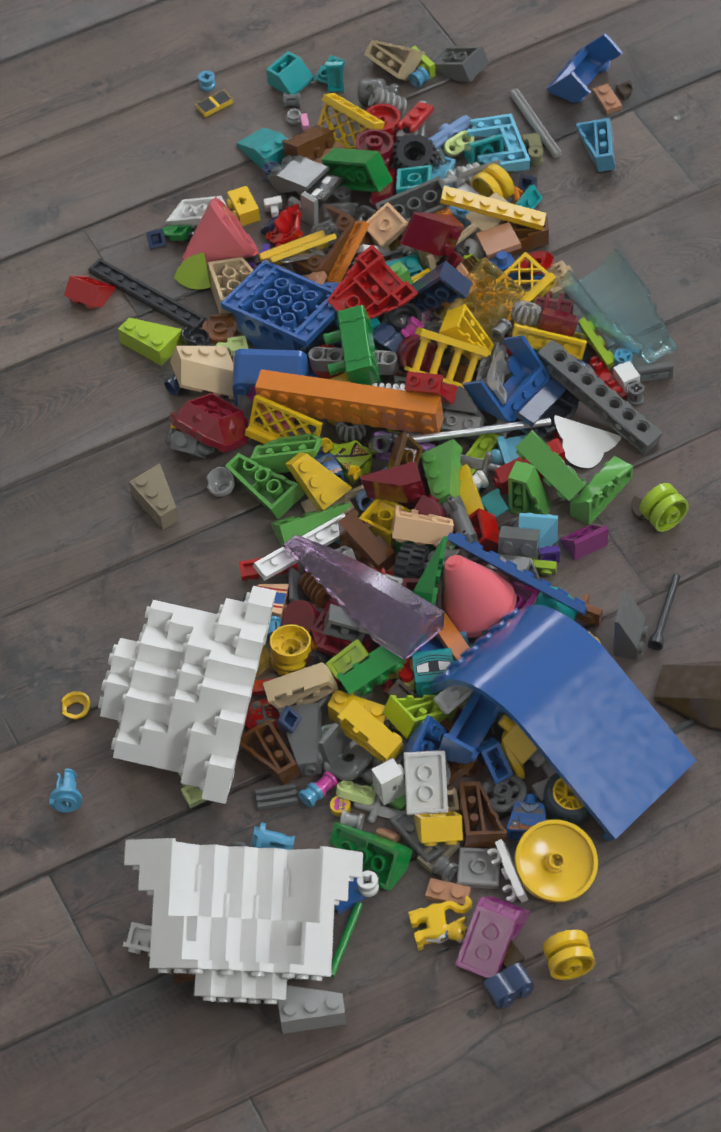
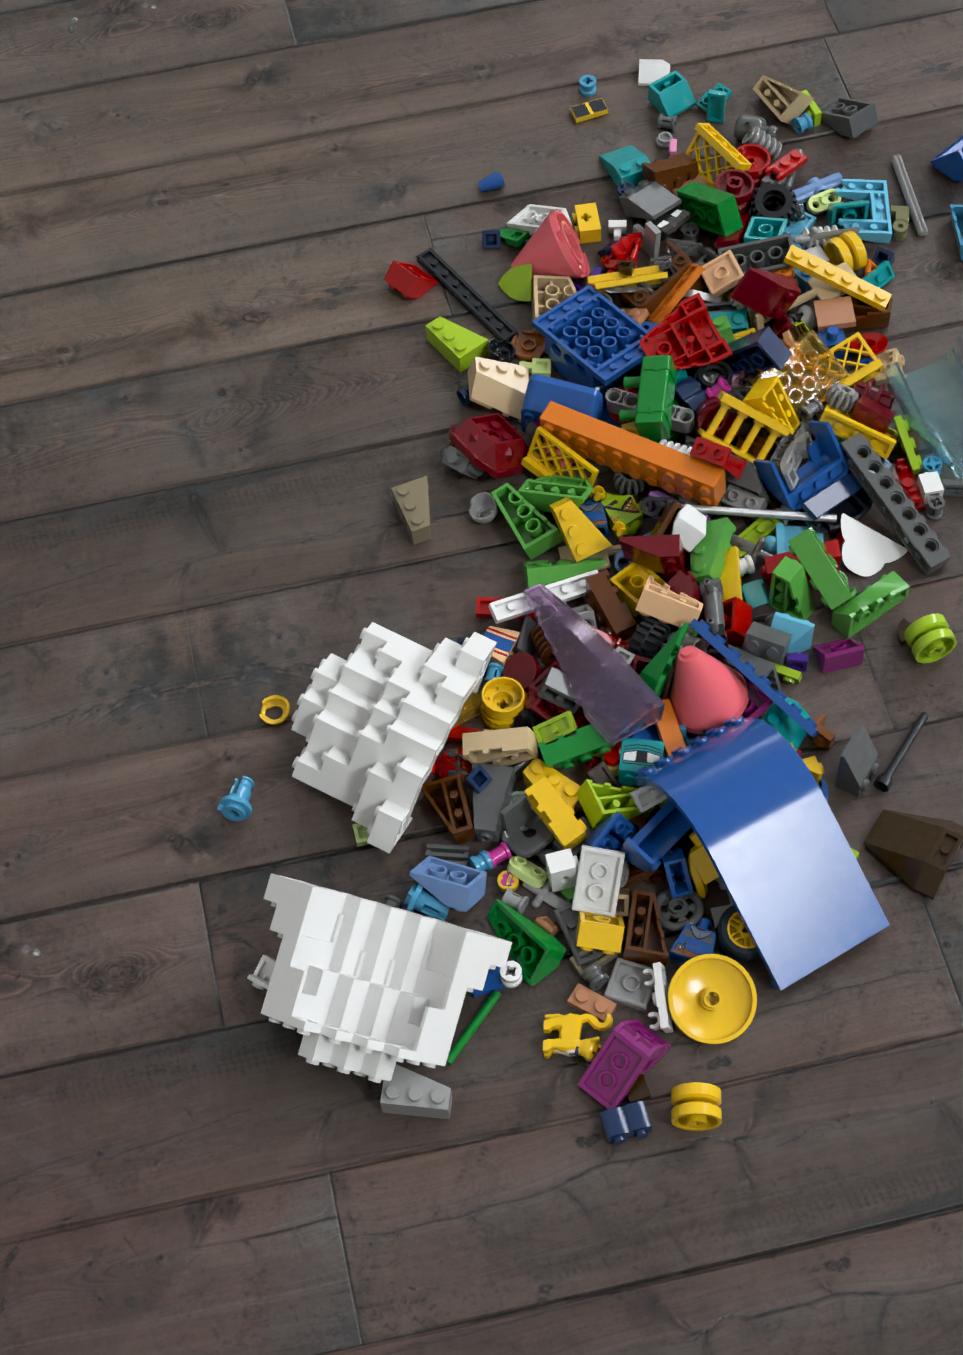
camera: 15 degrees right, 5 degrees up
(140, 187) = (492, 182): none -> blue cone
(264, 56) = (652, 70): none -> white slope
(290, 817) = (451, 882): none -> medium blue slope
(293, 238) = (626, 267): none -> dark brown tile
(423, 453) = (690, 526): none -> white slope

